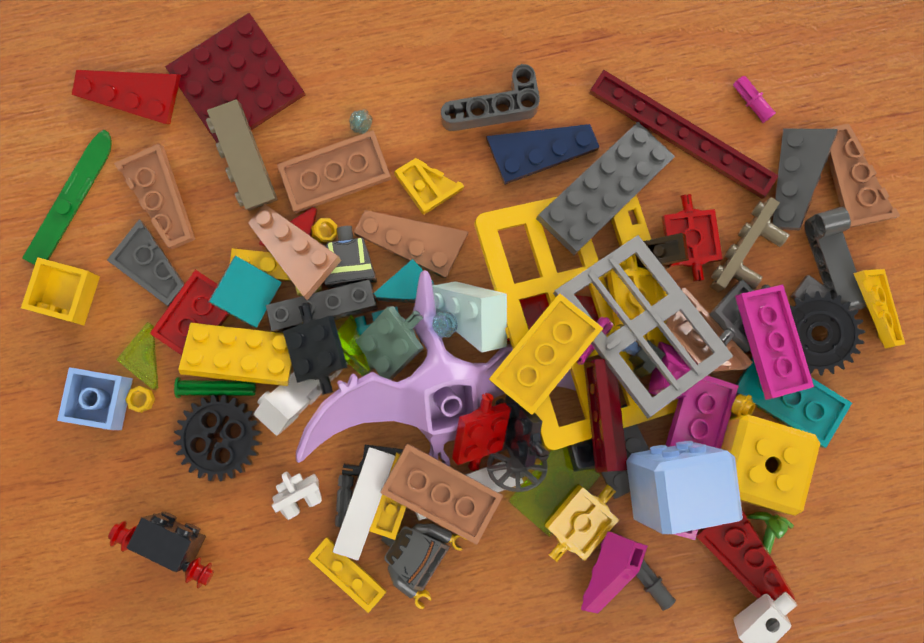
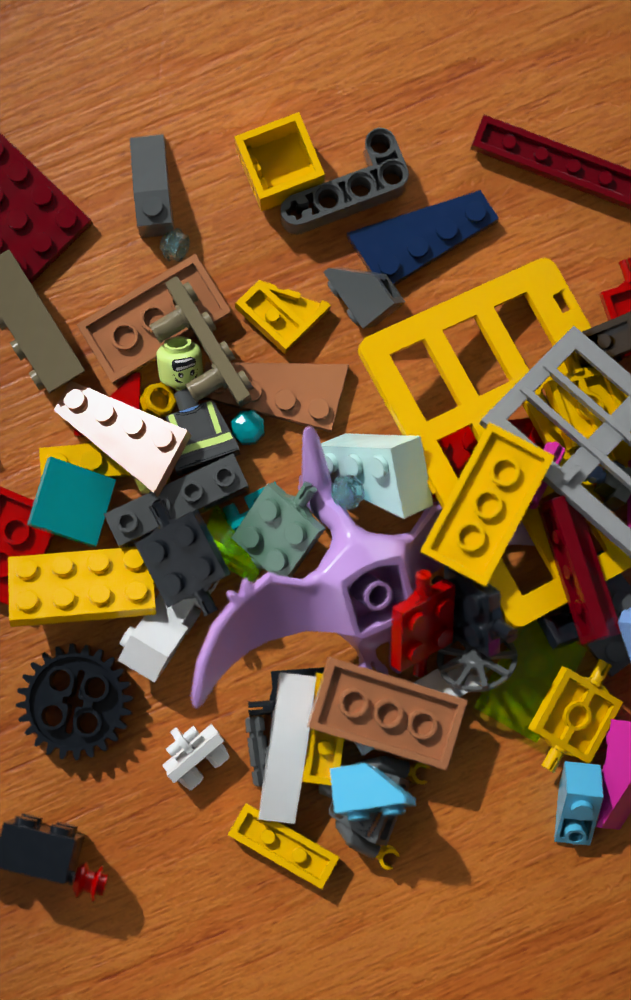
camera: 15 degrees left, 0 degrees up
(201, 387) = (55, 637): green axle -> none
(345, 206) = (179, 362): none -> yellowish green head
(352, 76) = (151, 186): none -> dark grey slope
(357, 174) = (188, 316): none -> dark tan plate
(385, 263) = (248, 427): none -> teal tile
(401, 286) = (278, 453): teal slope -> none
(413, 547) = (365, 790): none -> medium azure slope
(447, 73) = (279, 160): none -> yellow piece
(491, 183) = (366, 294): none -> dark grey slope
(571, 588) = (578, 803): none -> medium azure slope
(605, 188) = (518, 271): dark grey plate -> none

